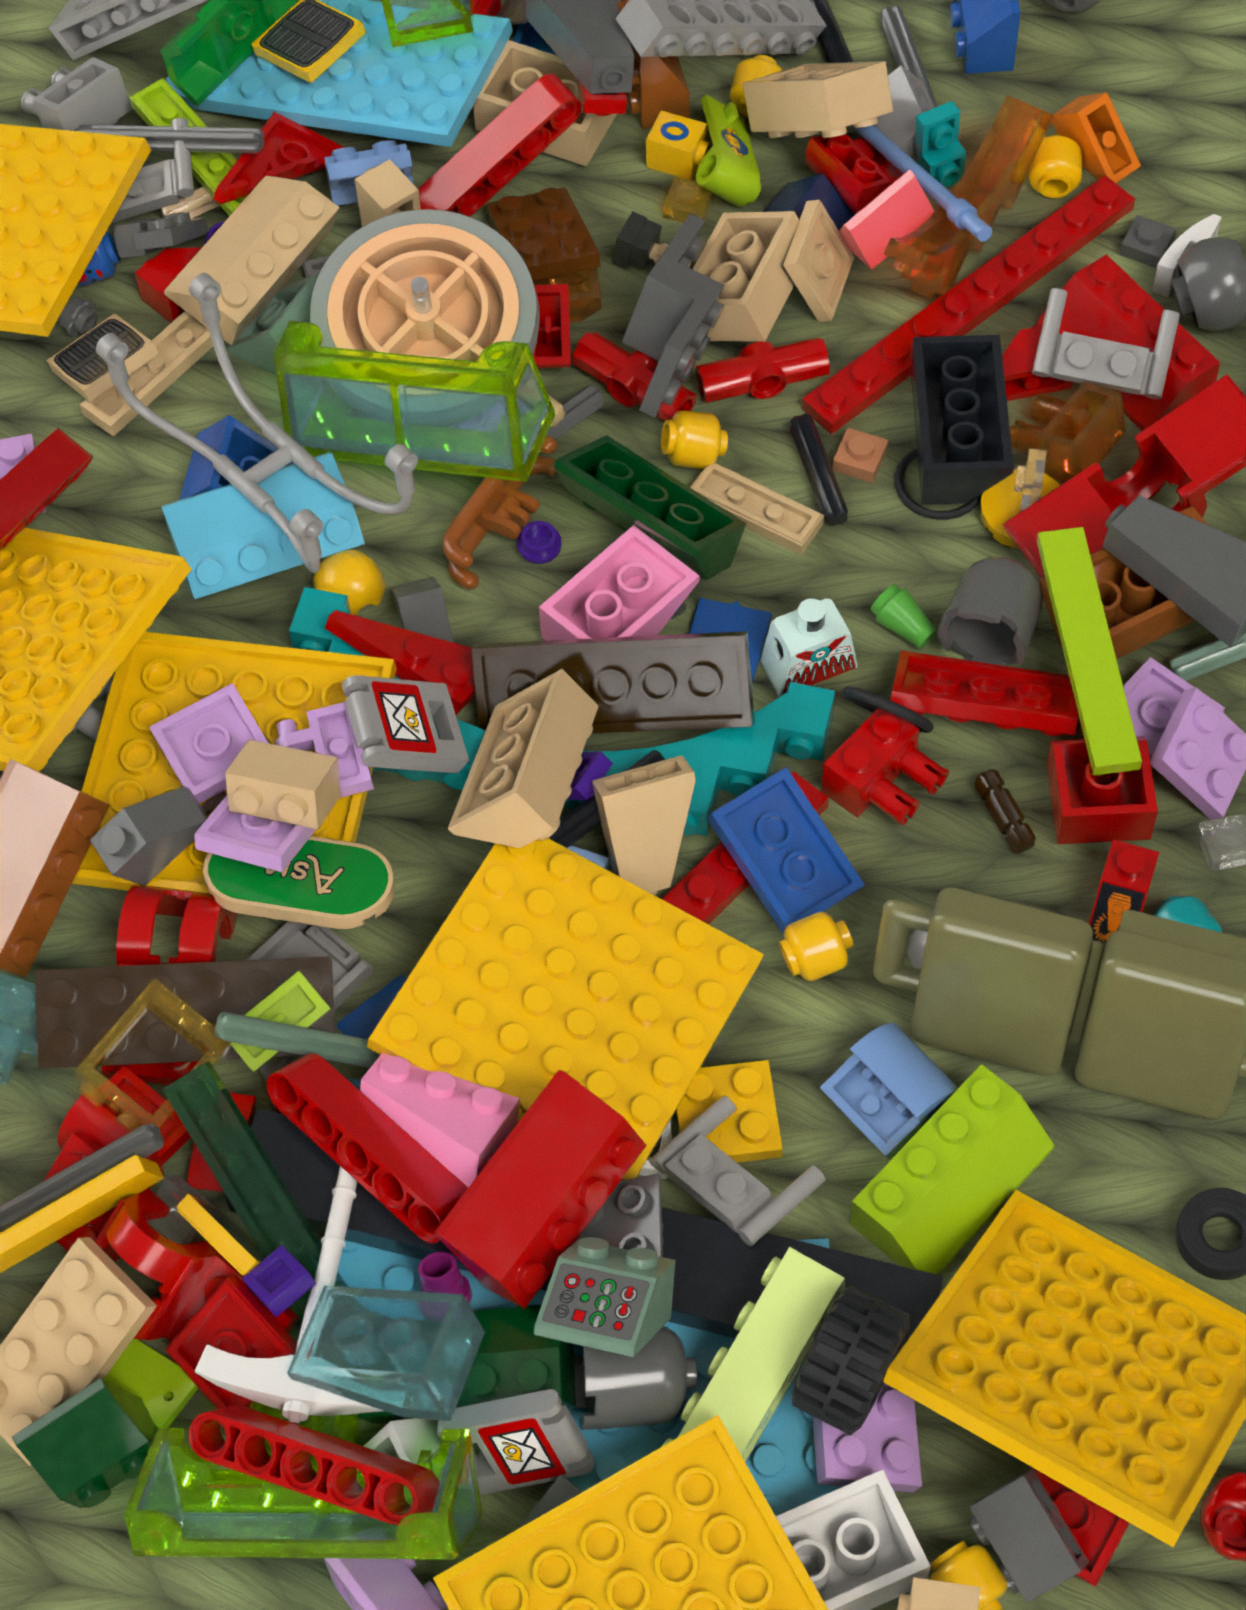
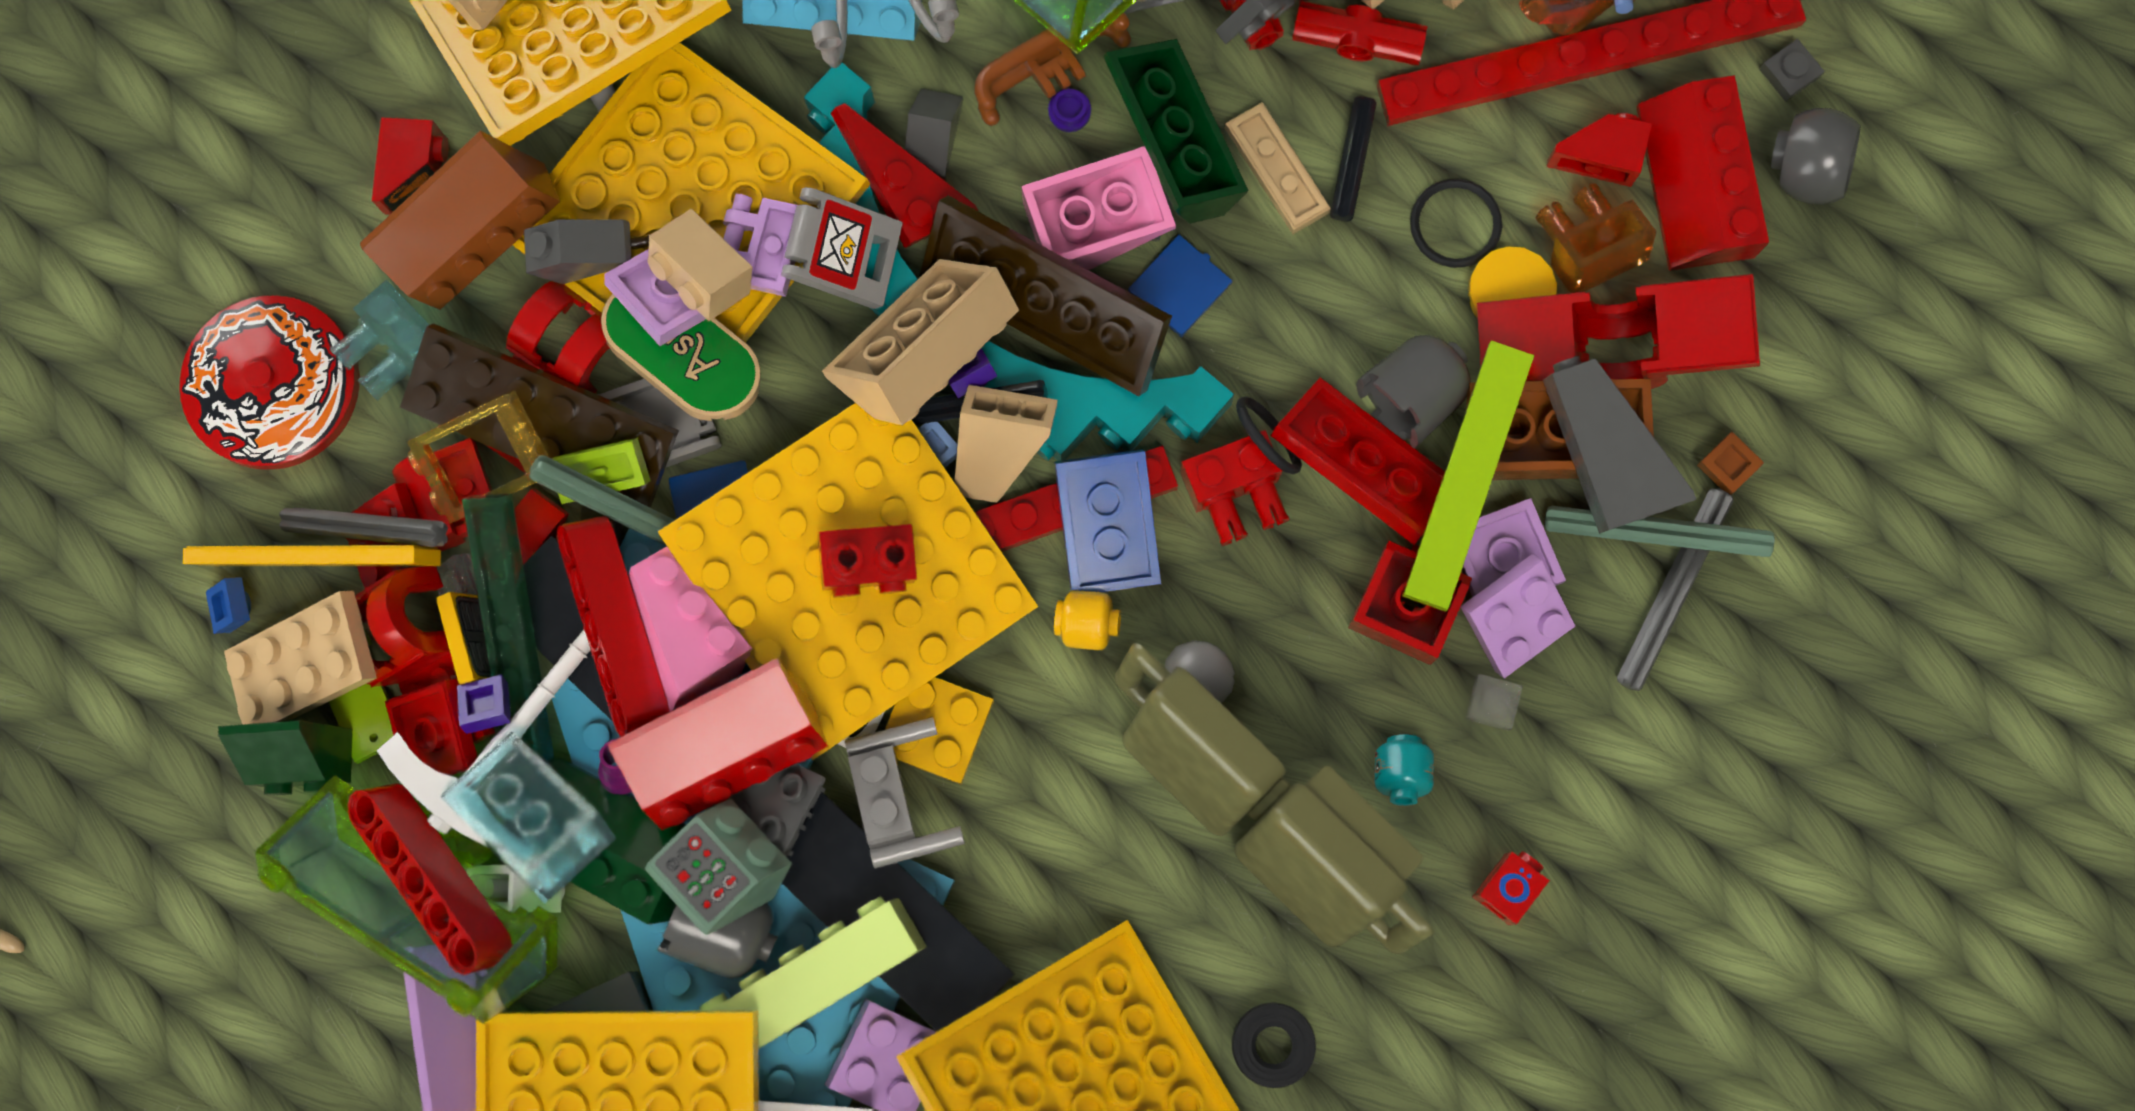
camera: 30 degrees right, 20 degrees up
(206, 740) = (671, 179): lavender plate -> none
(351, 575) = (888, 67): yellow hair -> none
(523, 1440) = (605, 931): light grey container -> none
(586, 965) = (867, 559): none -> red brick
(693, 439) = (1257, 75): yellow head -> none
(807, 646) = (1238, 337): light aqua torso -> none
(850, 1359) = (884, 1022): black tyre -> none
(860, 455) = (1399, 162): nougat plate -> none
(889, 1088) = (1076, 780): medium blue brick -> none
(903, 616) = (1341, 345): bright green cone -> none
(952, 1175) = (1082, 882): lime slope -> none
(960, 417) = (1501, 176): black slope -> none
(1005, 811) = (1321, 574): dark brown axle -> none
(1030, 477) = (1527, 271): clear plate -> none
(1103, 361) = (1659, 188): light grey plate -> none
(1122, 886) = (1367, 711): slope -> none
(1167, 266) = (1834, 96): white slope -> none

